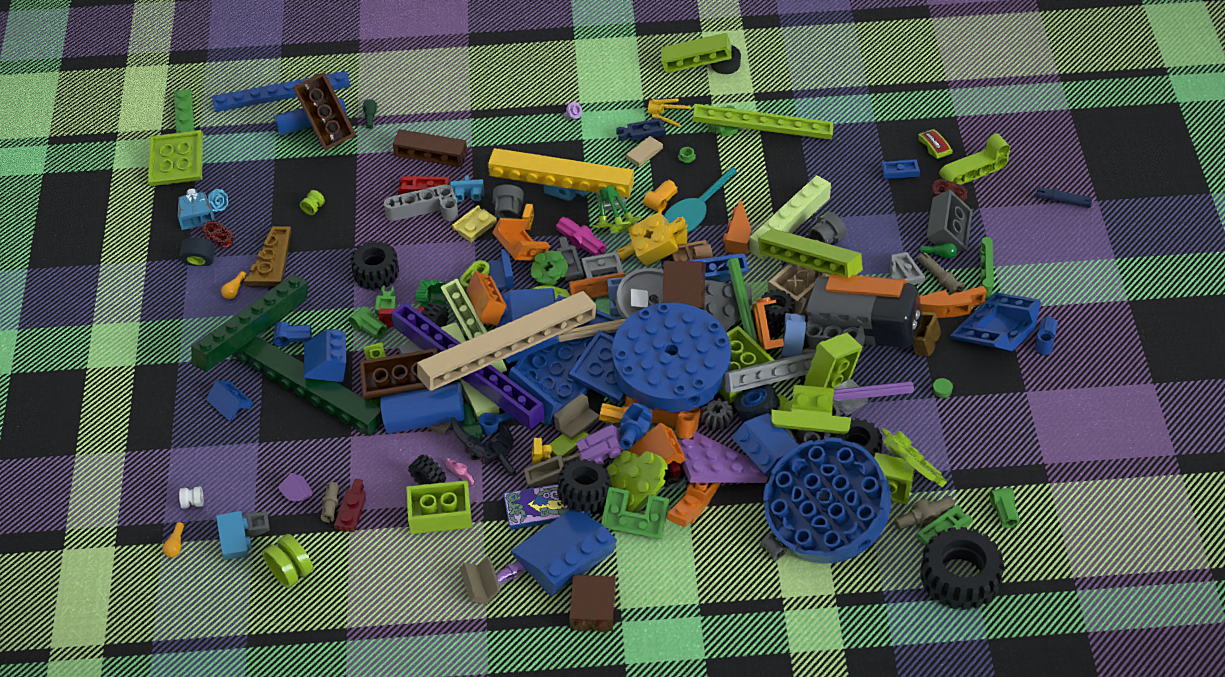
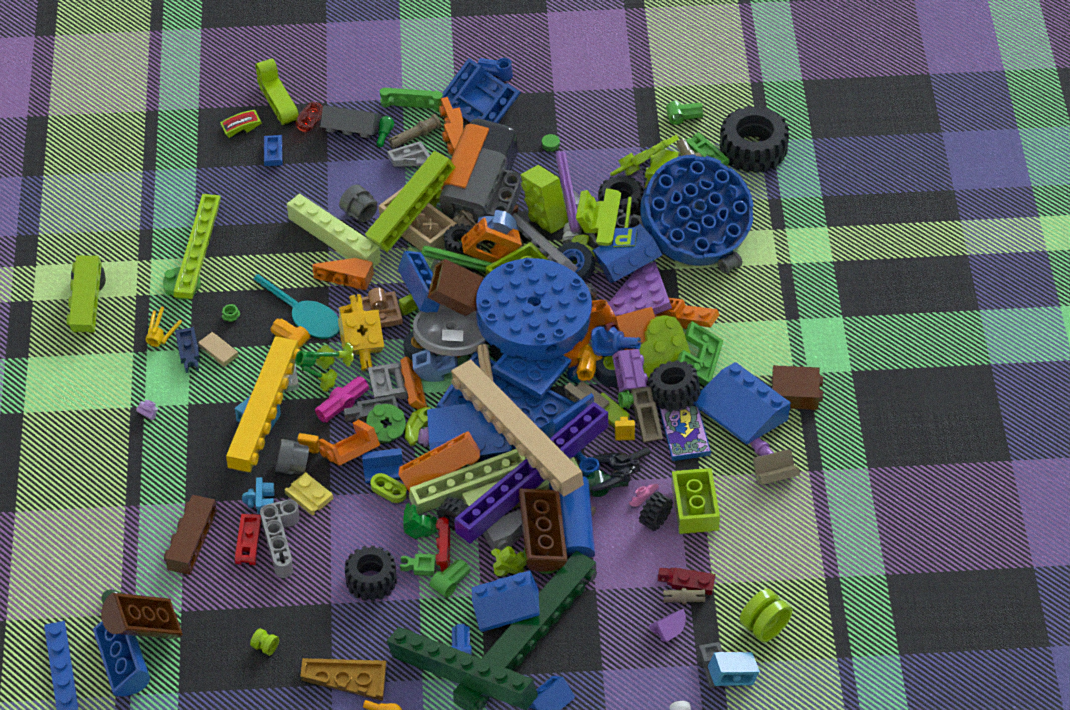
camera: 90 degrees left, 0 degrees up
(571, 448) = (625, 399): none -> bright green plate
(785, 435) = (625, 236): none -> piece
(1062, 196) = (322, 44): dark blue pin -> none

